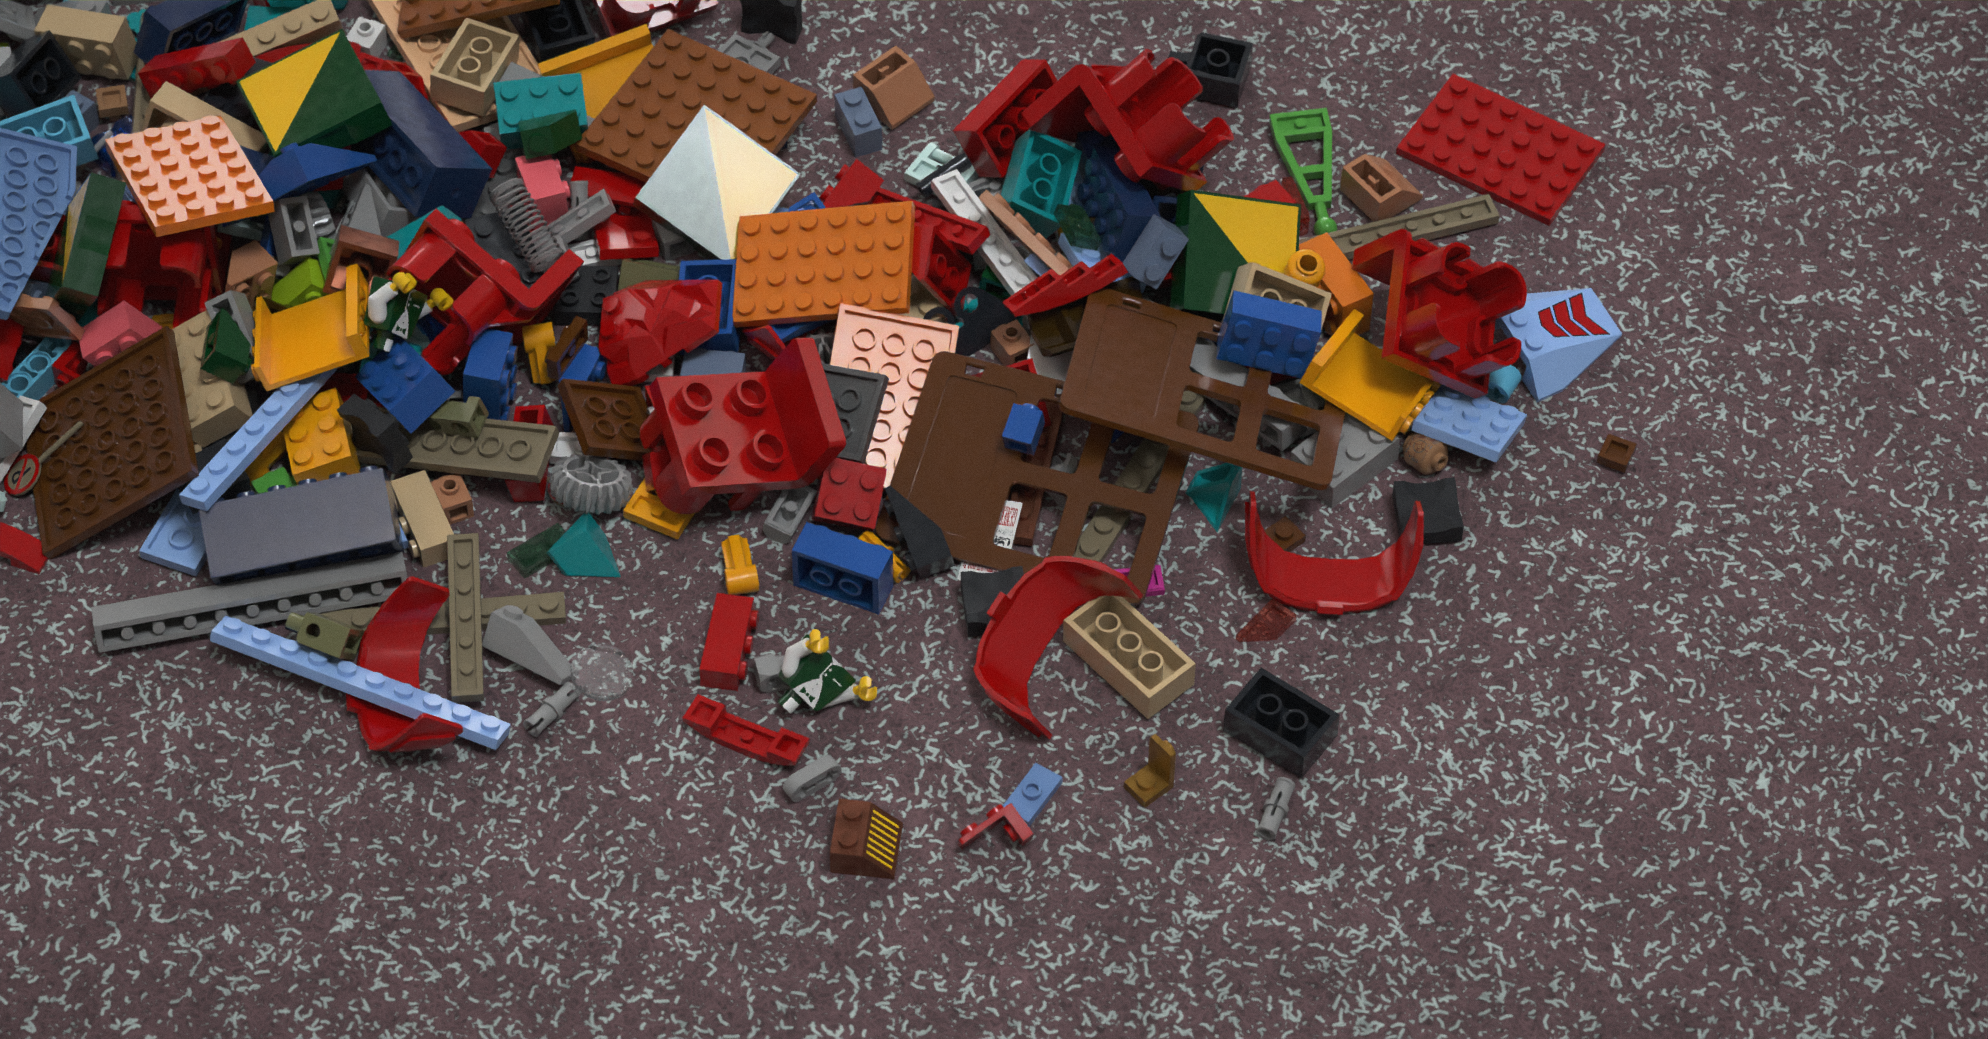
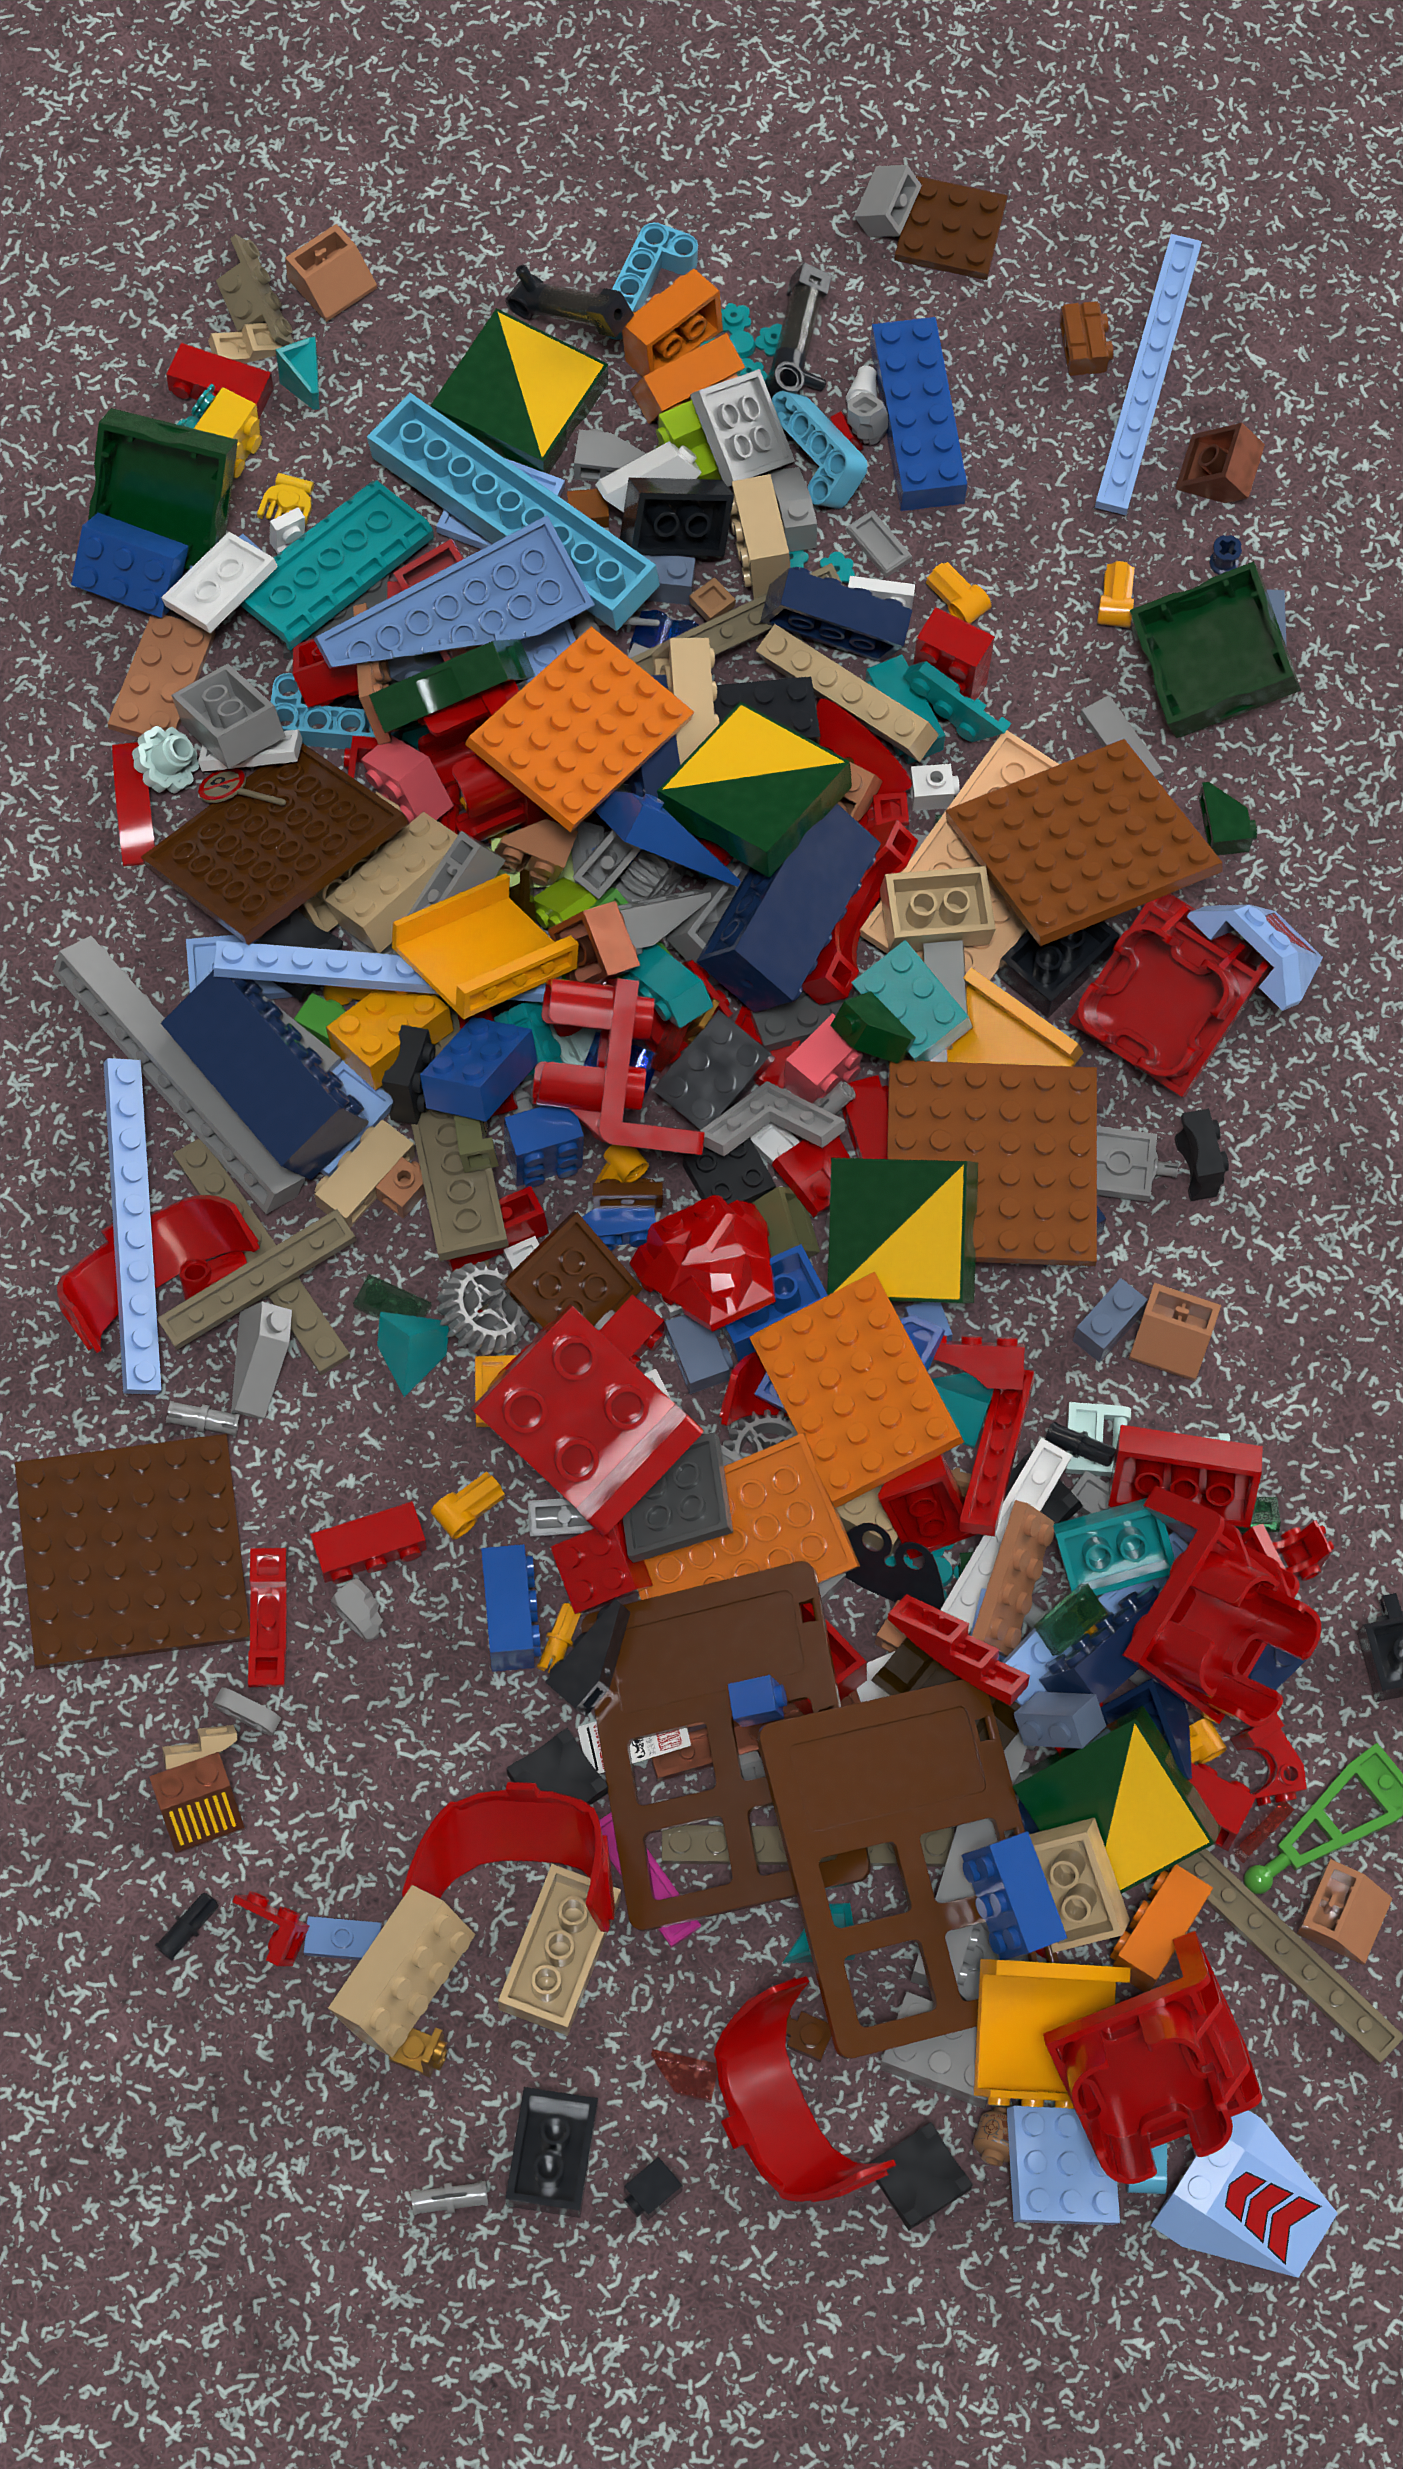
camera: 60 degrees right, 15 degrees up
(198, 66) = (756, 655): red brick -> none
(225, 349) = (413, 881): dark green slope -> none
(334, 638) = (165, 1165): olive torso -> none
(397, 307) = (525, 1012): torso -> none
(435, 653) = (199, 1274): none -> red piece
(532, 263) = (705, 1106): light grey piece -> none
(601, 672) = (271, 1441): clear tile -> none
(627, 805) = (131, 1551): none -> reddish brown plate
(818, 677) = (360, 1653): torso -> none
(822, 817) = (209, 1742): none -> tan slope
(960, 891) = (187, 1926): none -> black axle
(1088, 752) = (402, 1971): none -> tan brick
(1242, 169) = (1280, 1758): none -> red tile
(1306, 267) = (1120, 1893): light orange head -> none
(1343, 676) = (651, 2189): none -> black brick
(1616, 453) = (1119, 2348): reddish brown plate -> none

